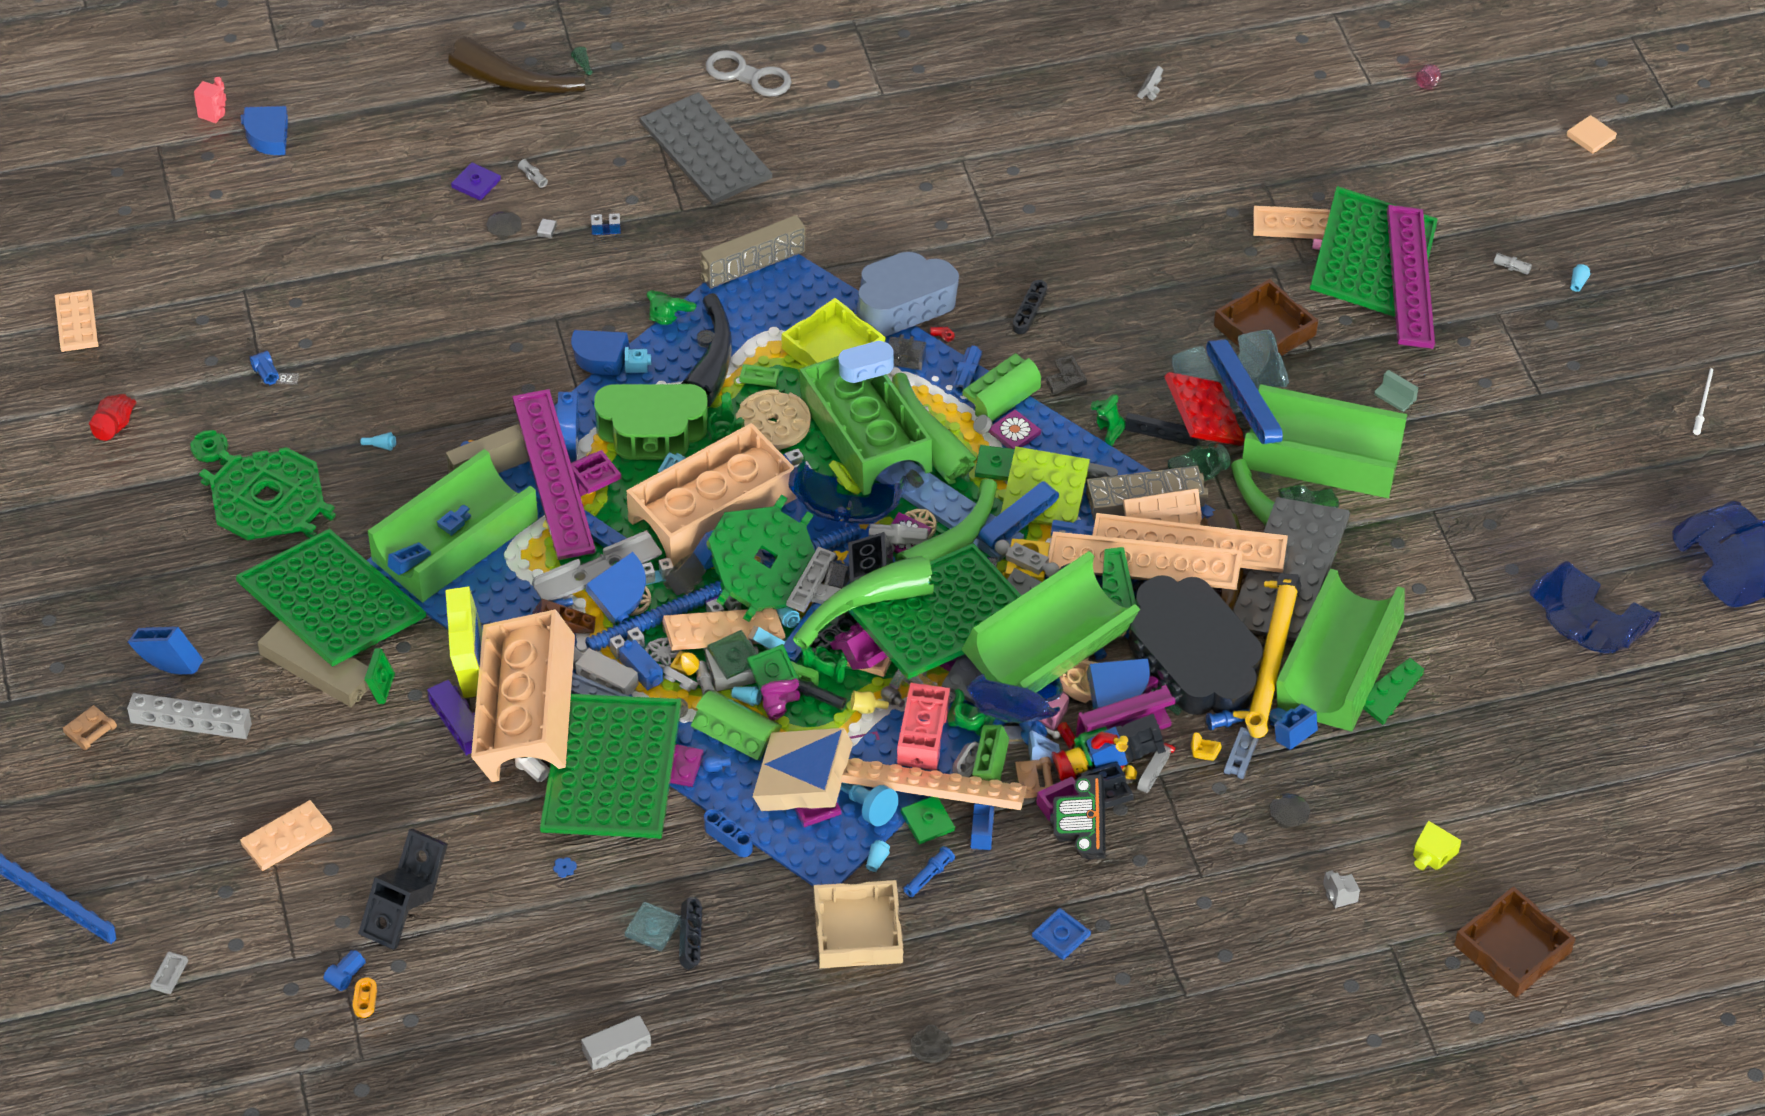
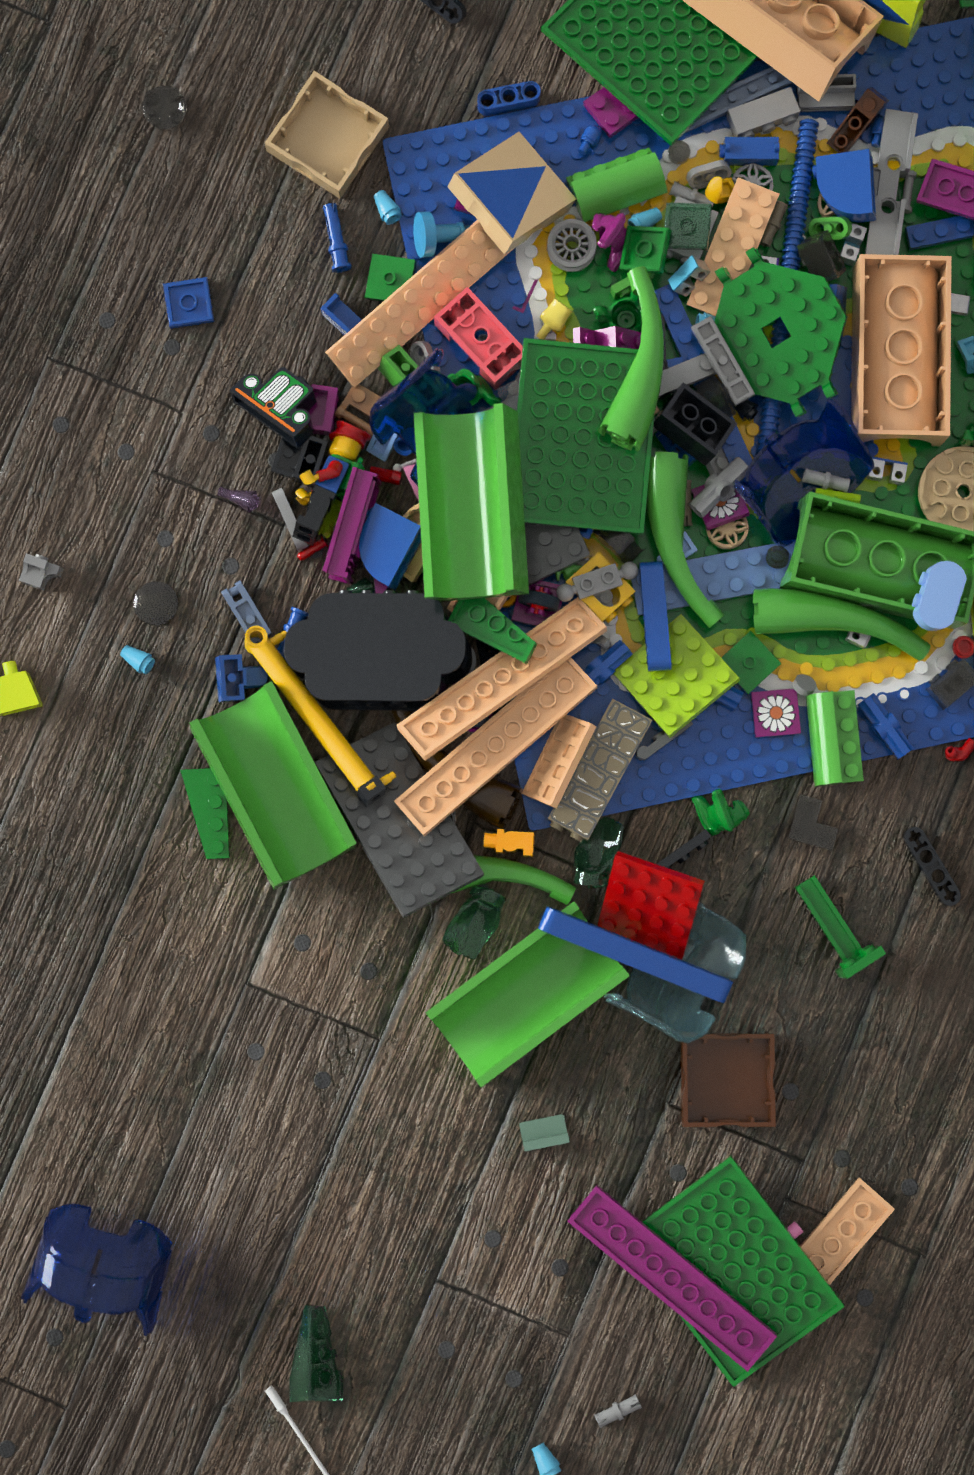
camera: 130 degrees right, 35 degrees up
(614, 646) = (786, 157): flat silver piece -> none
(658, 585) = (833, 225): none -> bright green plate
(803, 717) = (581, 228): none -> light grey wheel
(809, 689) = (596, 286): black pin -> none
(836, 487) = (826, 480): none -> light grey pin
(1128, 297) = (836, 930): none -> green bracket
(1166, 802) = (245, 499): none -> clear purple cone
(1204, 748) = (274, 582): yellow plate -> none
(1240, 503) = (510, 842): none -> light orange hips
(1337, 792) = (138, 659): none -> medium azure cone
(1571, 610) = (102, 1074): clear blue piece -> none
(1660, 411) = (314, 1367): none -> clear green wedge

